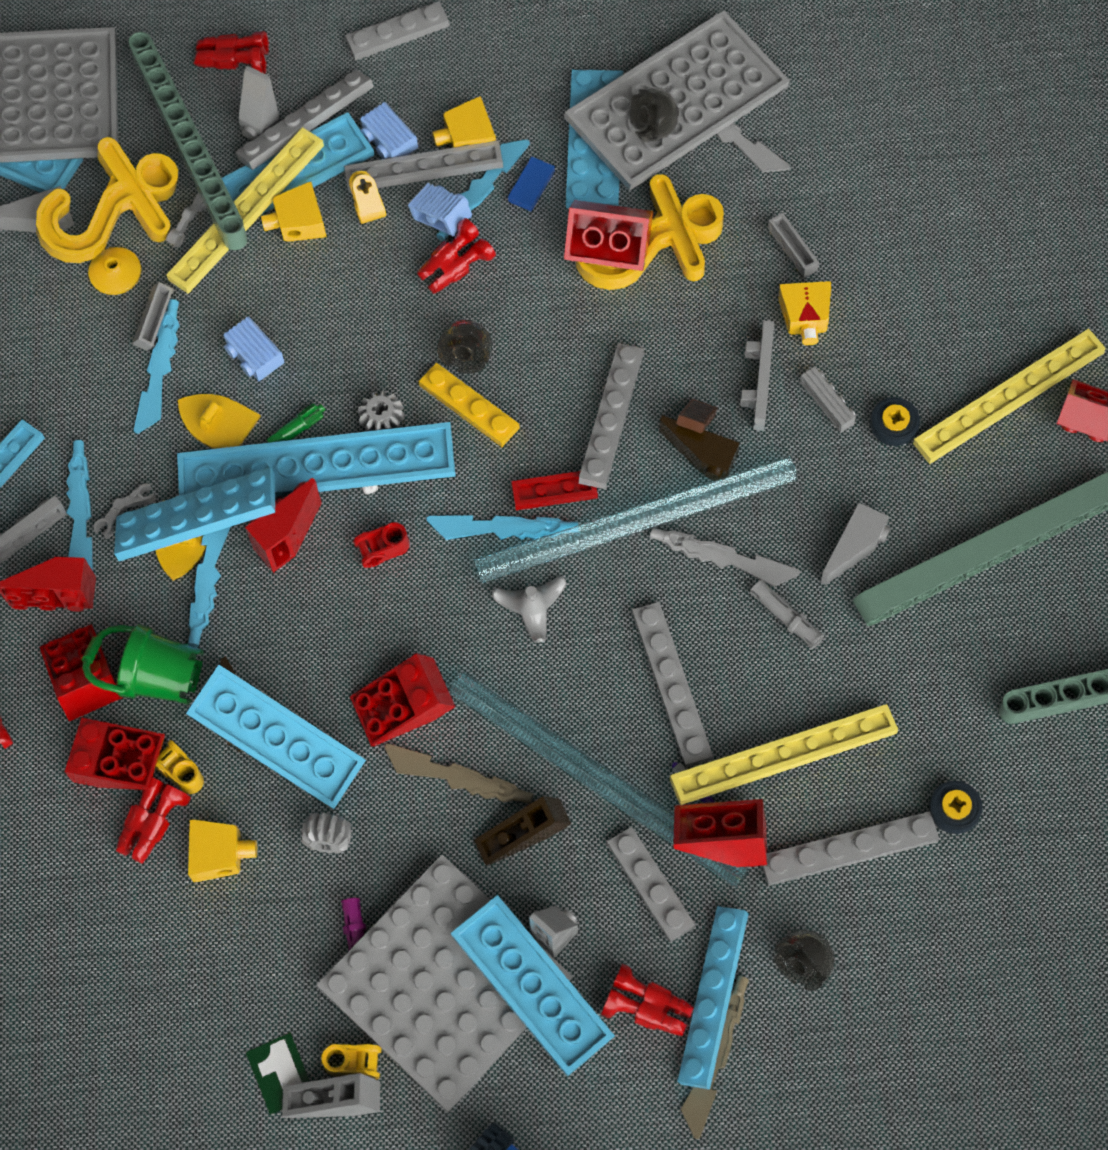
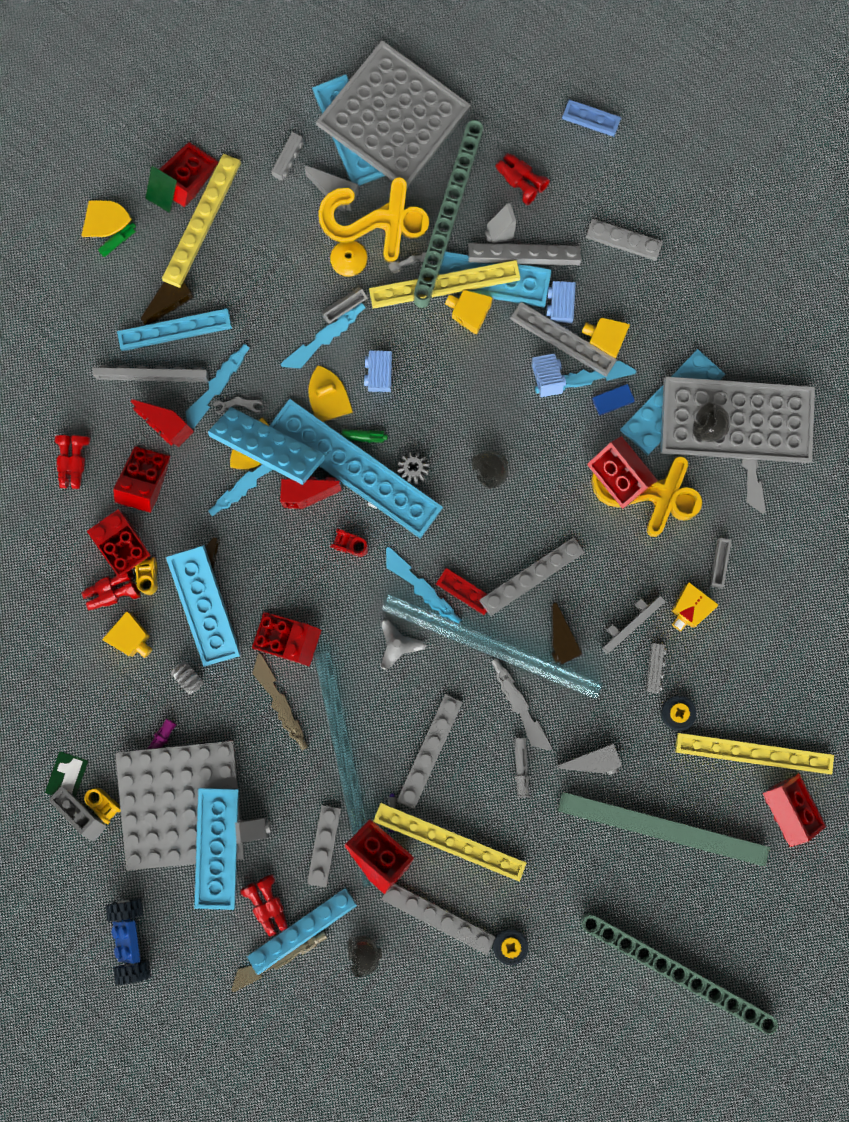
camera: 40 degrees right, 15 degrees up
(149, 665) = (175, 510): green piece -> none
(367, 200) = (515, 333): yellow piece -> none
(447, 257) = (525, 410): red piece -> none
(469, 404) = (464, 502): yellow plate -> none
(523, 830) = (285, 762): dark brown slope -> none
(696, 415) = (575, 618): reddish brown tile -> none

